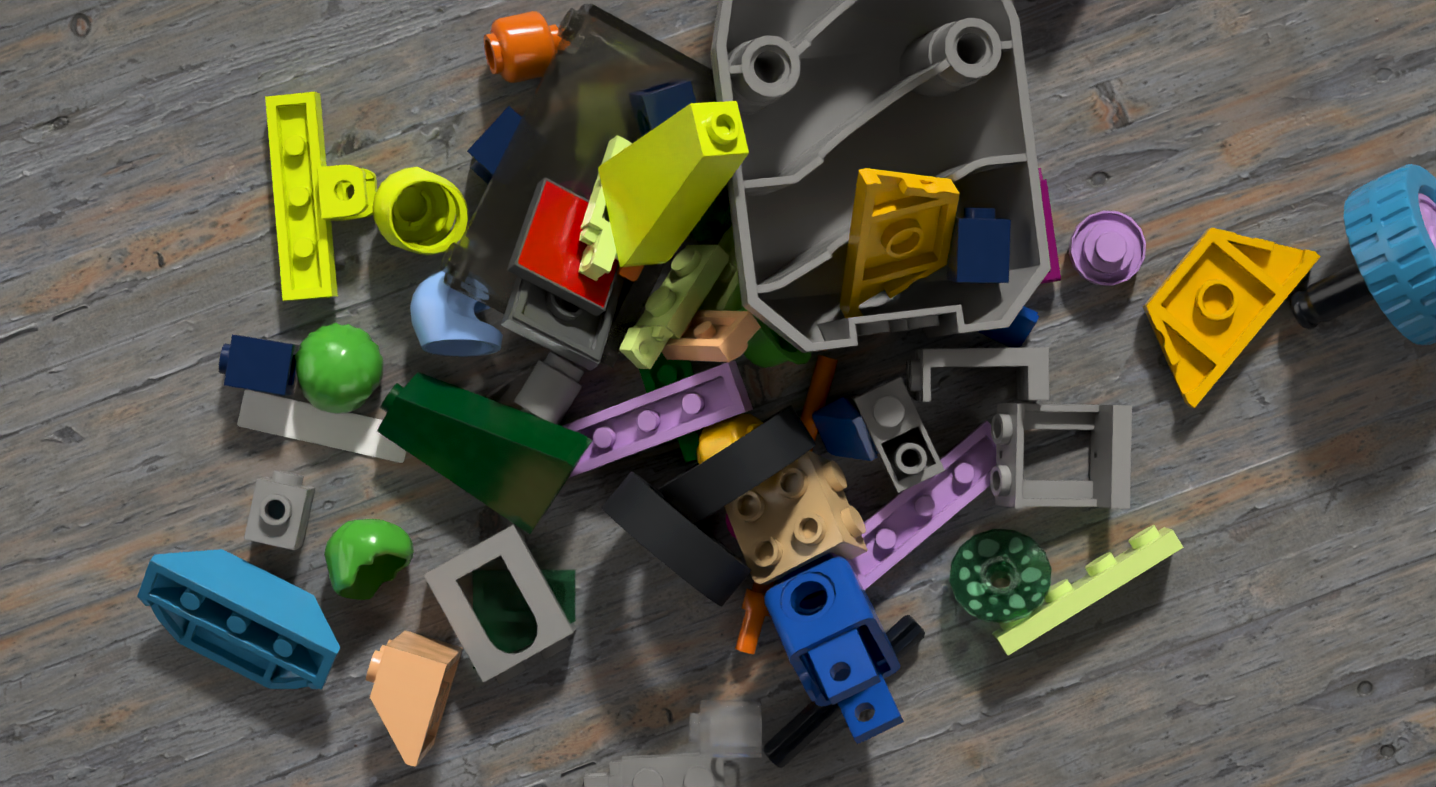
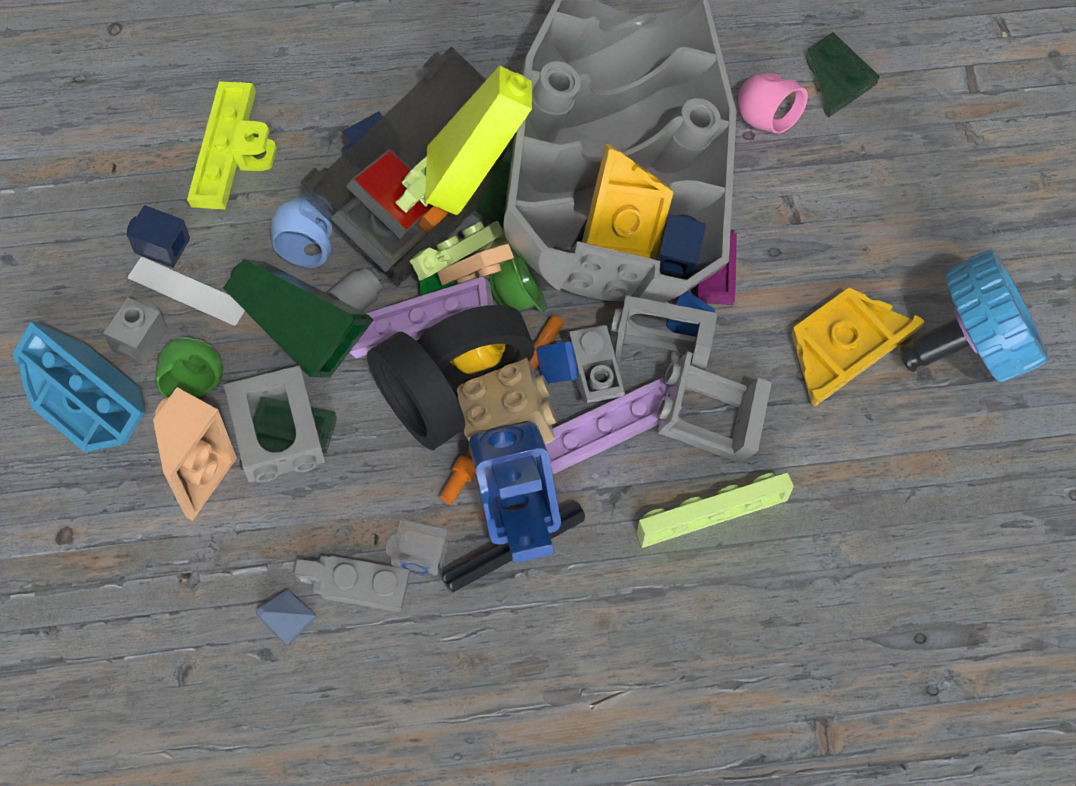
camera: 10 degrees right, 25 degrees down
(338, 368) = (209, 250): bright green hair -> none
(418, 210) = (294, 156): neon yellow helmet -> none
(521, 46) = (393, 84): orange head -> none
(996, 556) = (651, 483): clear green dish -> none
(1107, 248) = (771, 288): lavender plate -> none

